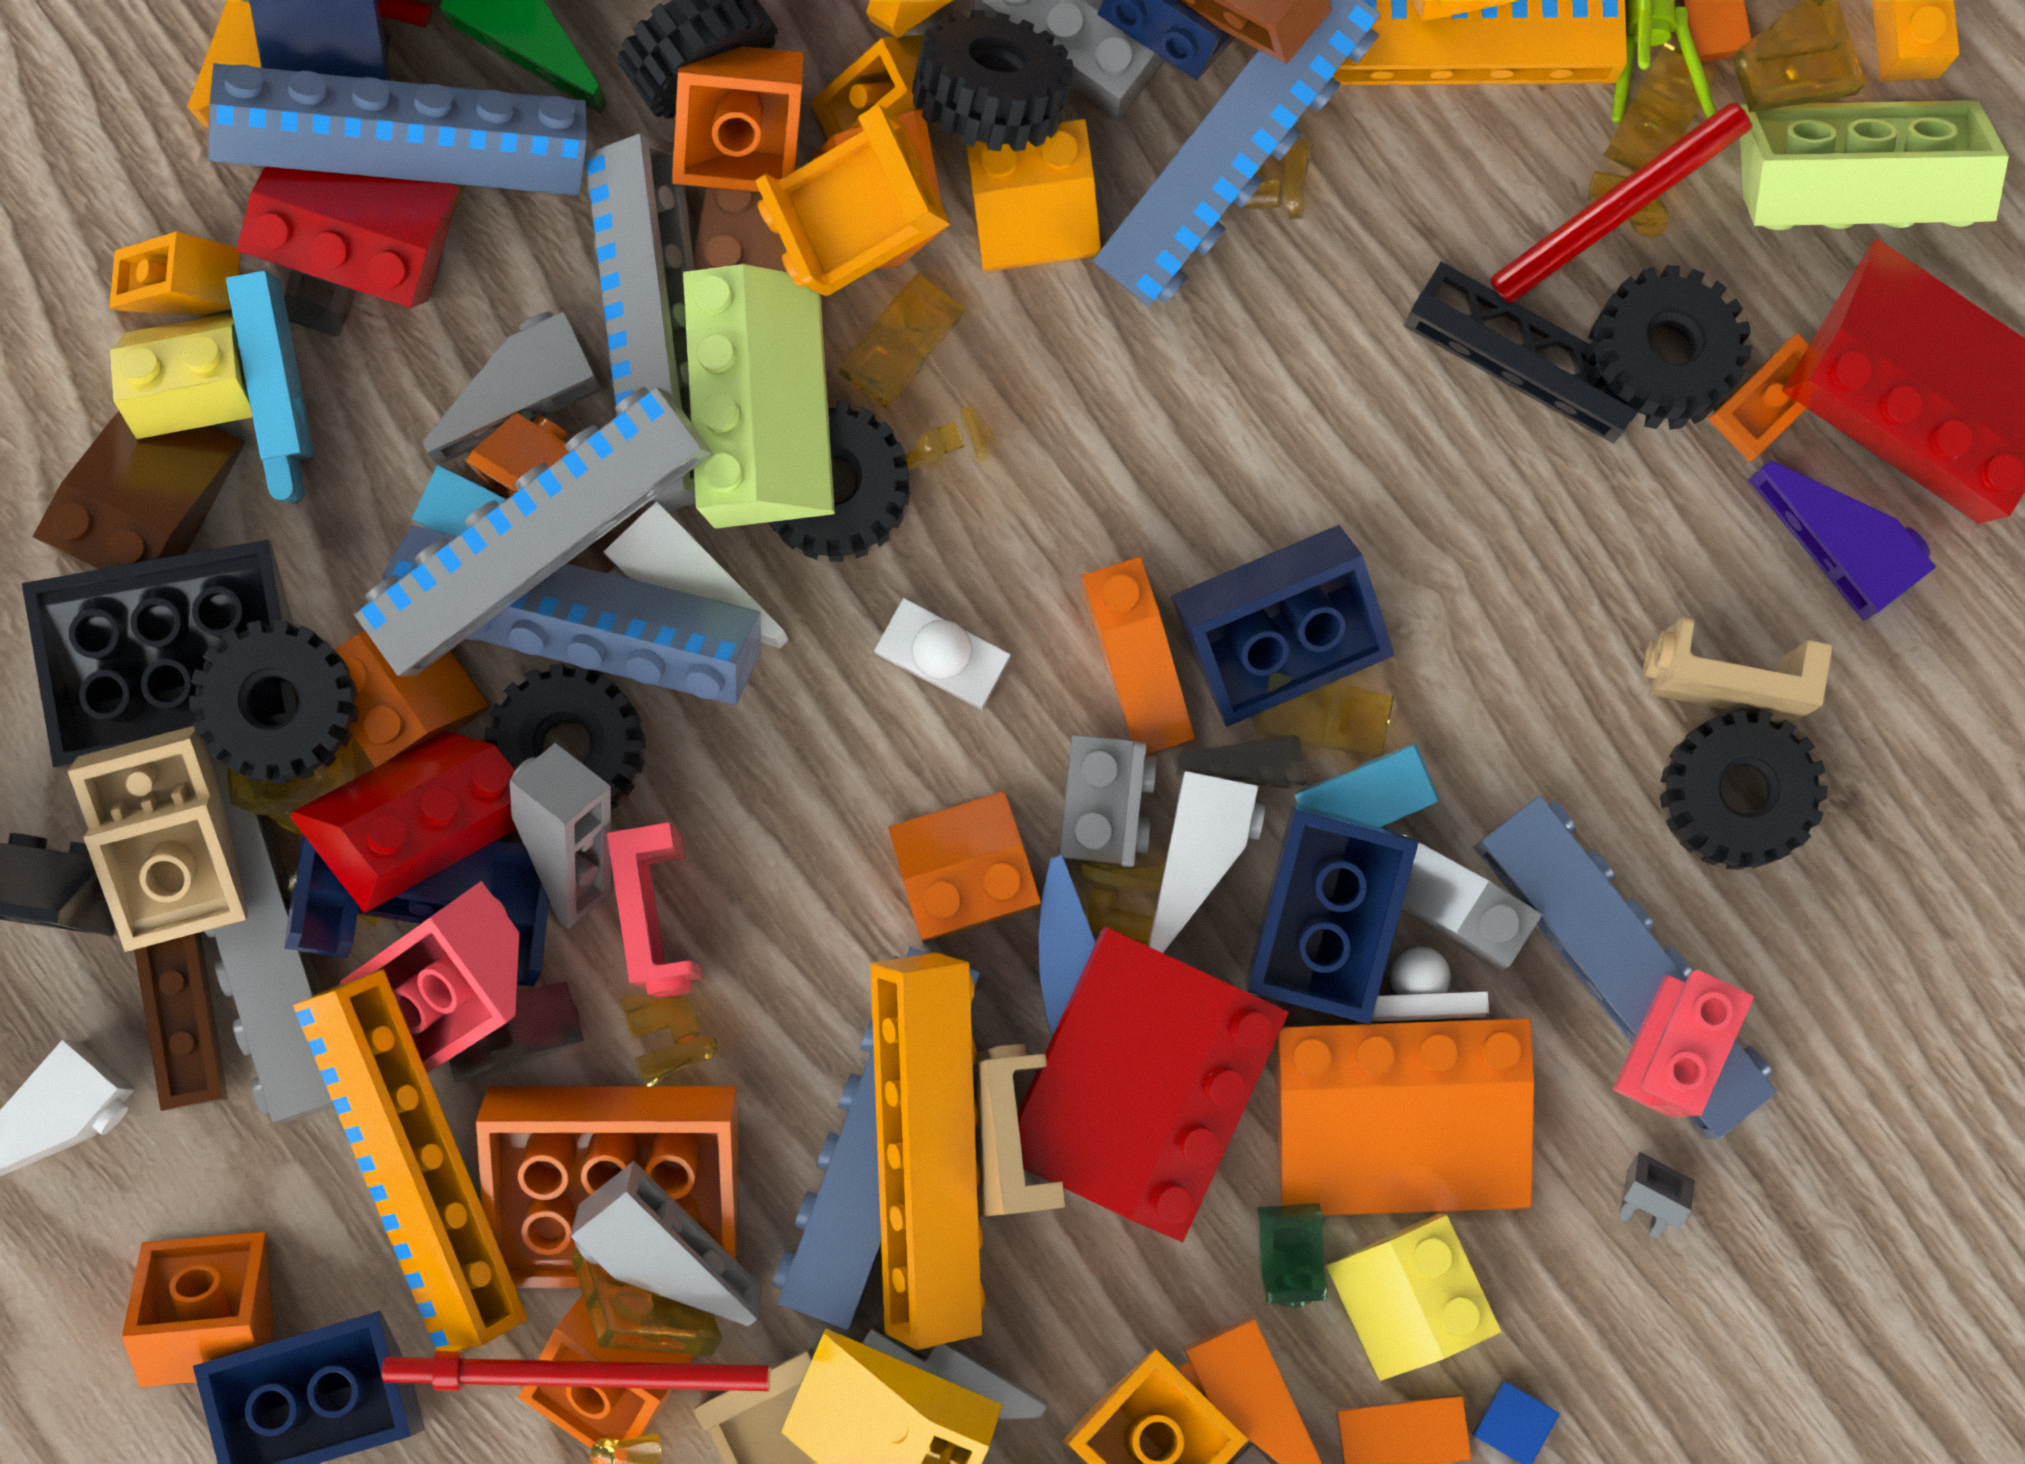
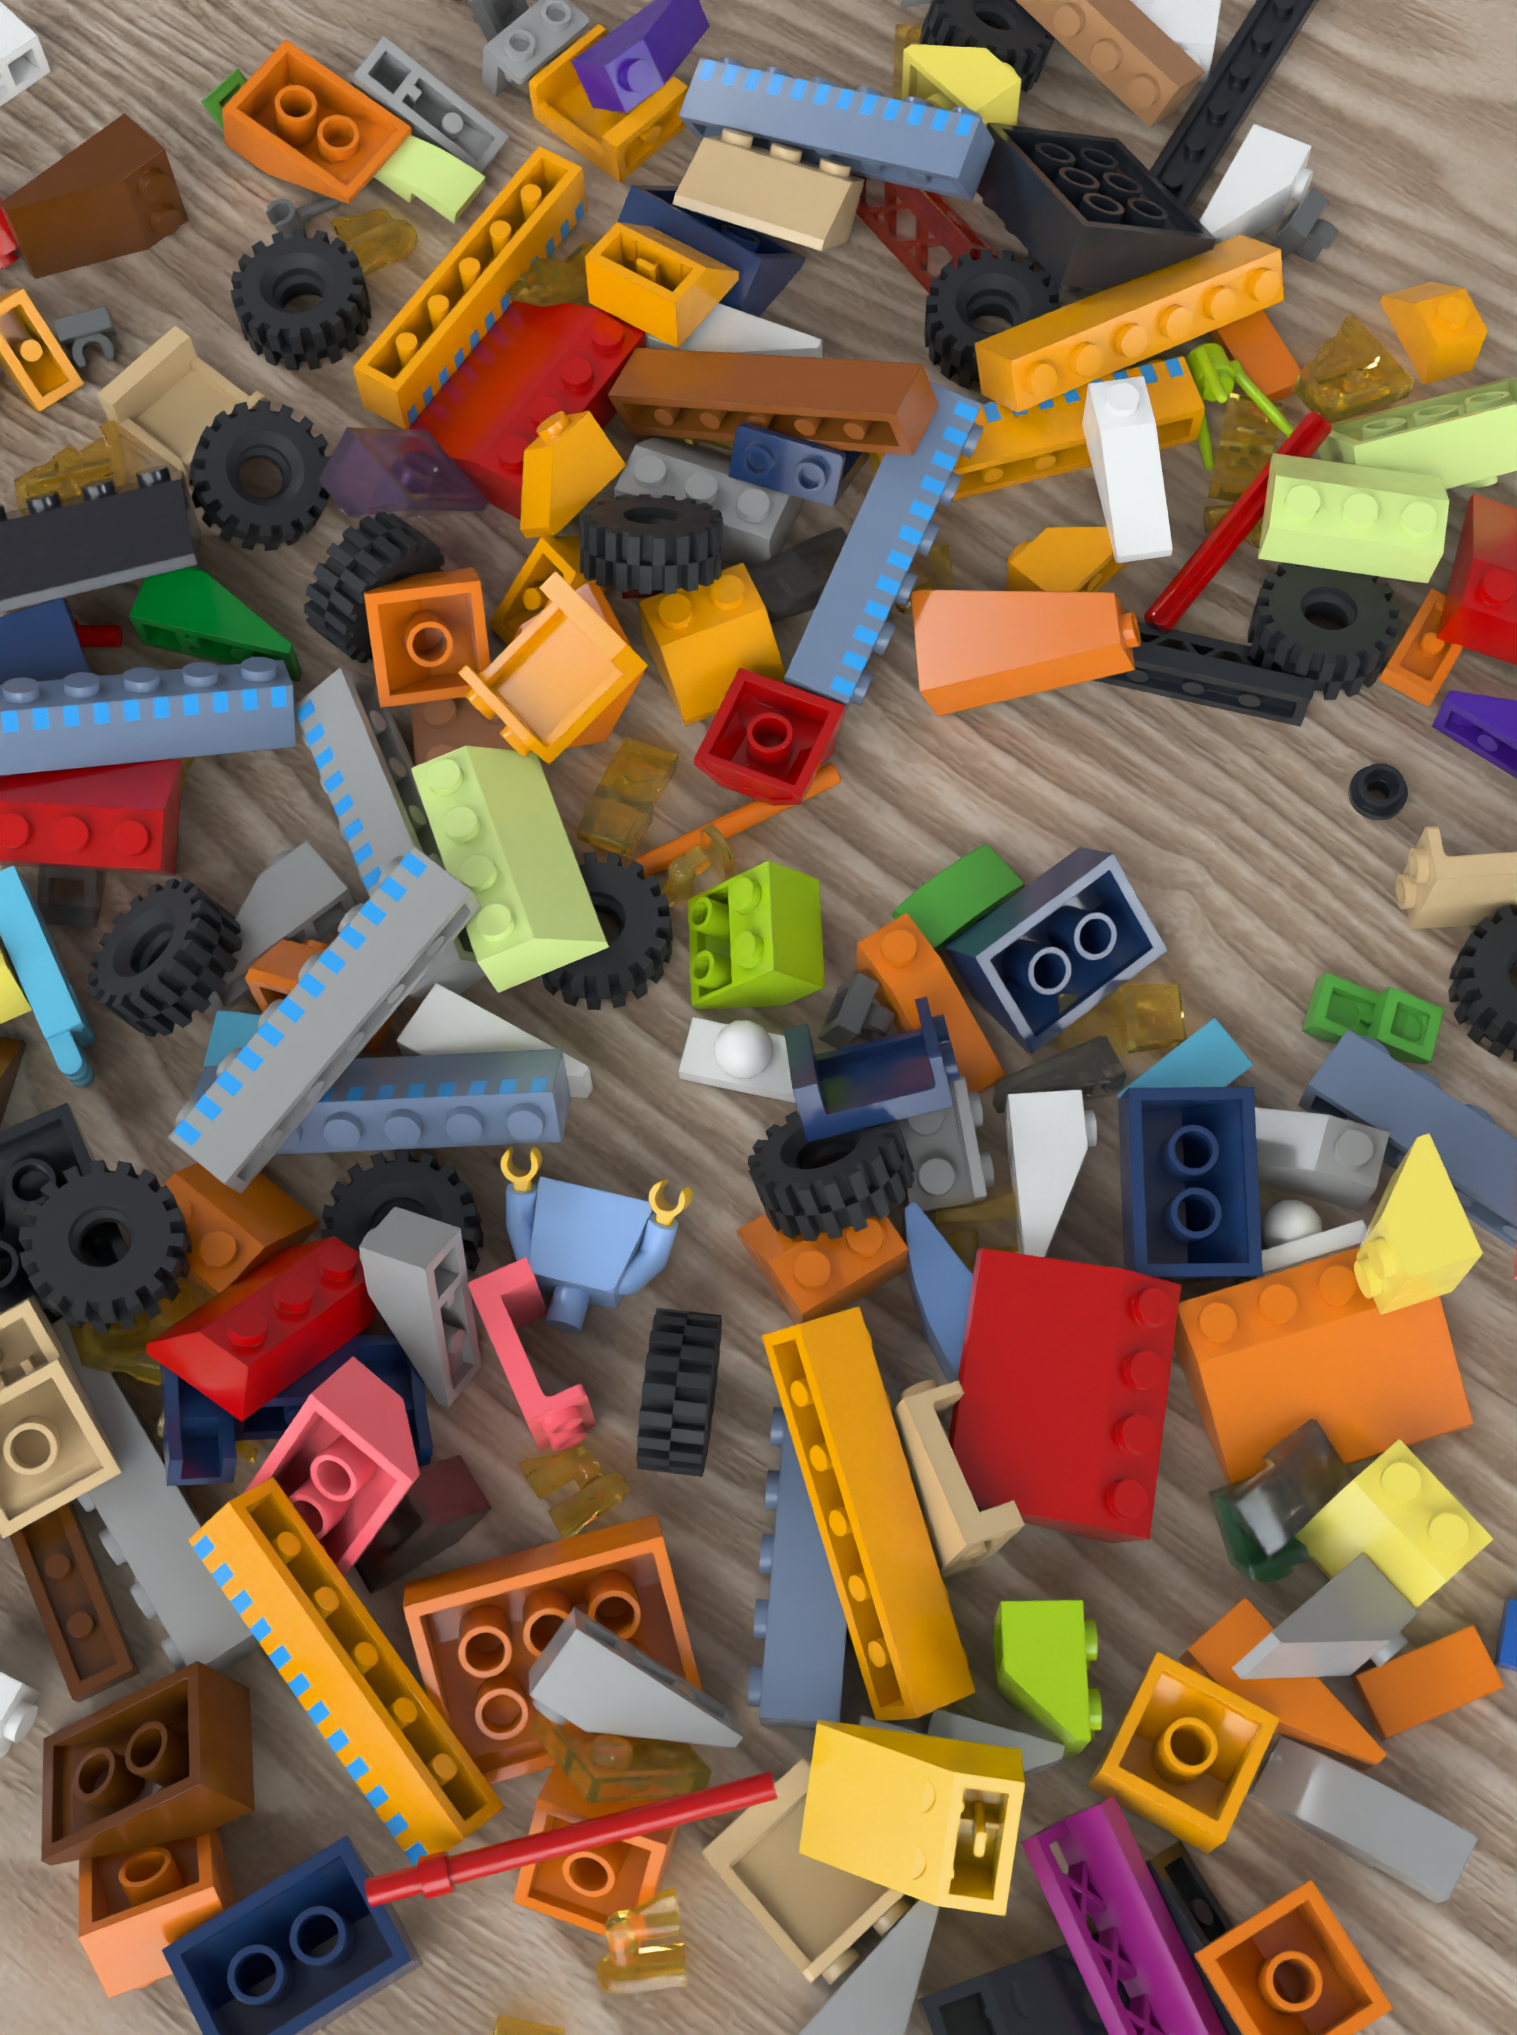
camera: 15 degrees left, 15 degrees down
(216, 1194) = (149, 1768): none -> reddish brown slope
(396, 402) = (165, 957): none -> black tyre
(737, 802) = (586, 1240): none -> light blue torso
(784, 984) = (679, 1392): none -> black tyre
(984, 772) = (830, 1179): none -> black tyre
(987, 534) = (756, 940): none -> lime slope
(1005, 395) = (731, 824): none -> orange bar
(1048, 1333) = (1043, 1668): none -> lime slope
(1052, 723) = (872, 1079): none -> dark blue panel
(1059, 321) = (769, 739): none -> red slope
(1062, 639) = (855, 1014): none -> dark grey tile
(1144, 136) = (796, 577): none -> clear smoke slope
(1202, 543) = (960, 896): none -> bright green slope
(1330, 1370) = (1335, 1629): none -> light grey slope
(1332, 1231) = (1290, 1490): none -> clear smoke slope
(1337, 287) = (1016, 643): none -> orange slope
(1423, 206) = (1063, 561): none -> light orange slope
(1517, 123) = (1127, 468): none -> white slope
(1517, 1036) = (1417, 1236): none -> light yellow slope
(1581, 784) = (1393, 1018): none -> bright green slope
(1677, 529) = (1380, 778): none -> black plate
(1736, 240) = (1354, 518): none -> yellowish green slope

